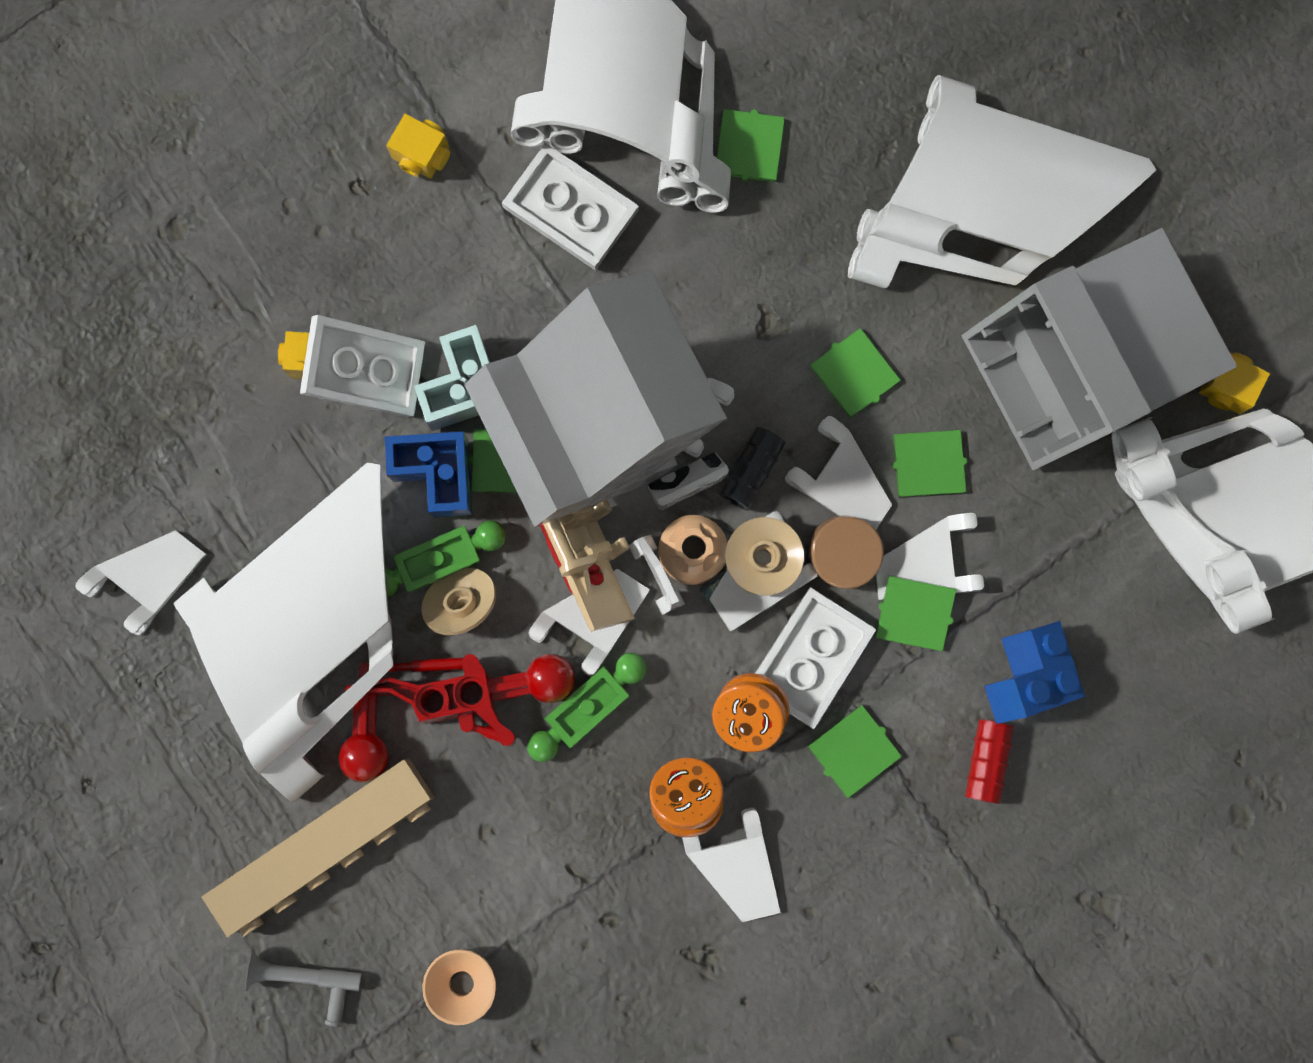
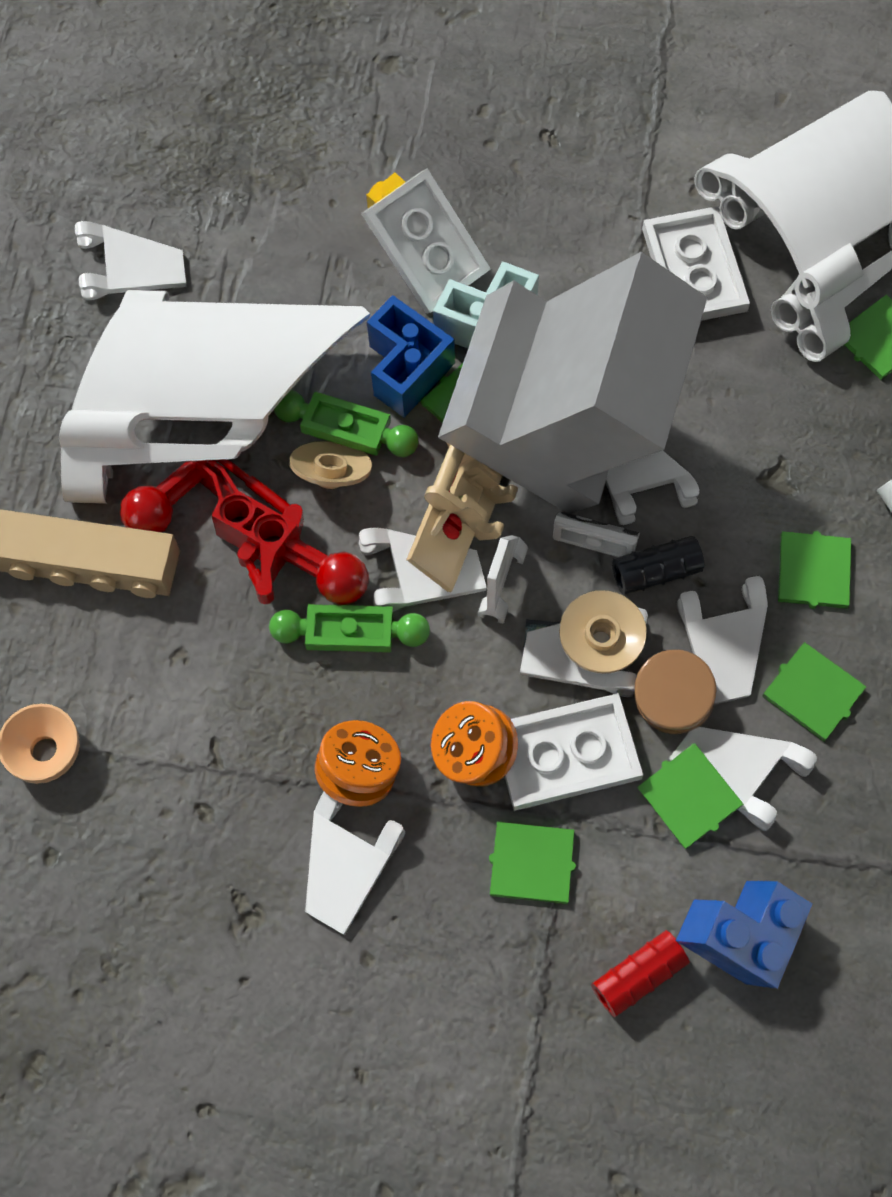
camera: 50 degrees right, 15 degrees down
(419, 146) = (618, 137): yellow brick -> none
(690, 570) = (545, 604): light nougat piece -> none

